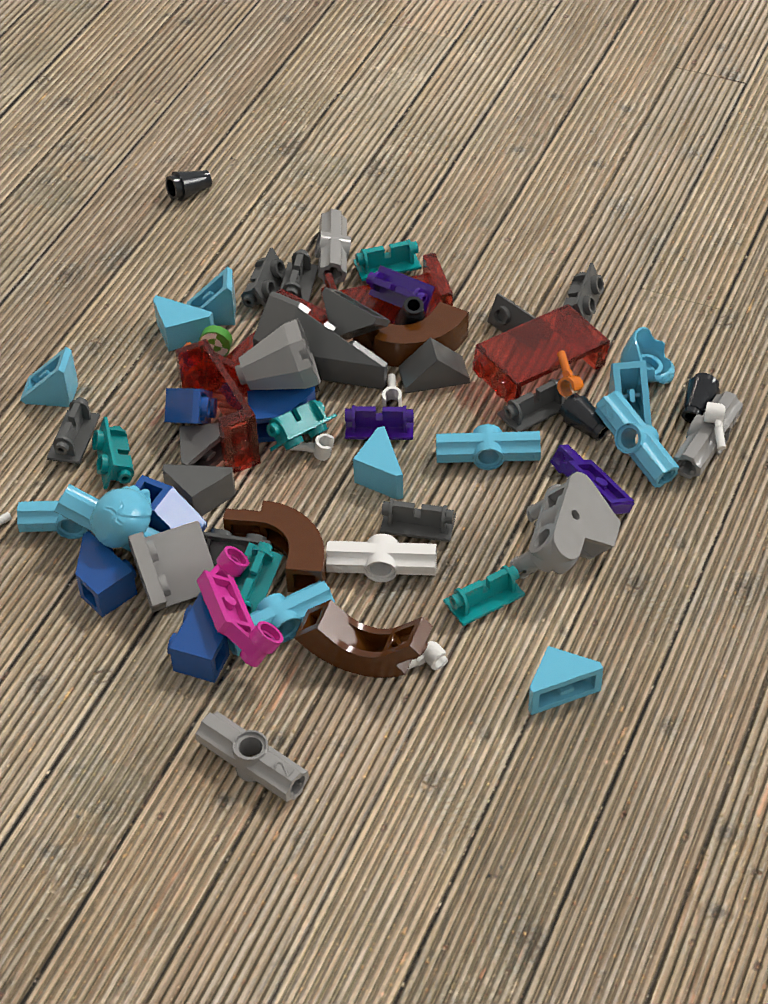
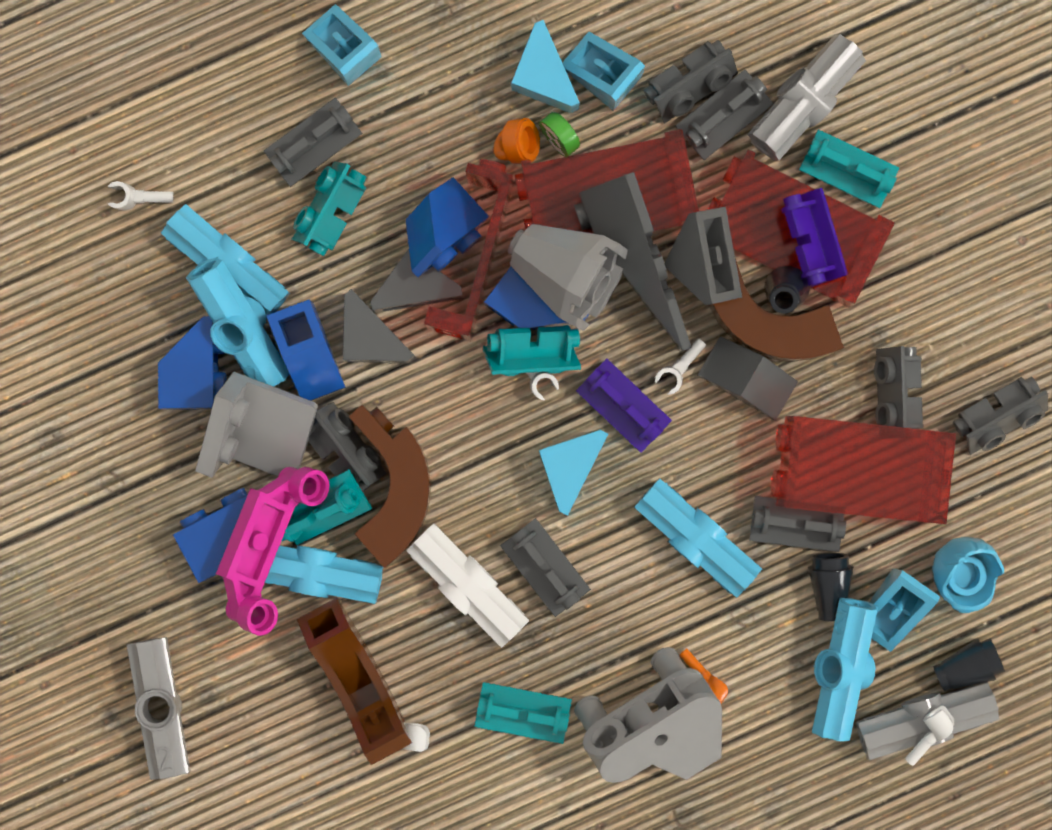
camera: 40 degrees right, 40 degrees up
(121, 514) = (242, 347): medium azure hair -> none
(564, 383) = (848, 547): orange hand -> none
(569, 461) = (752, 675): dark purple hinge -> none

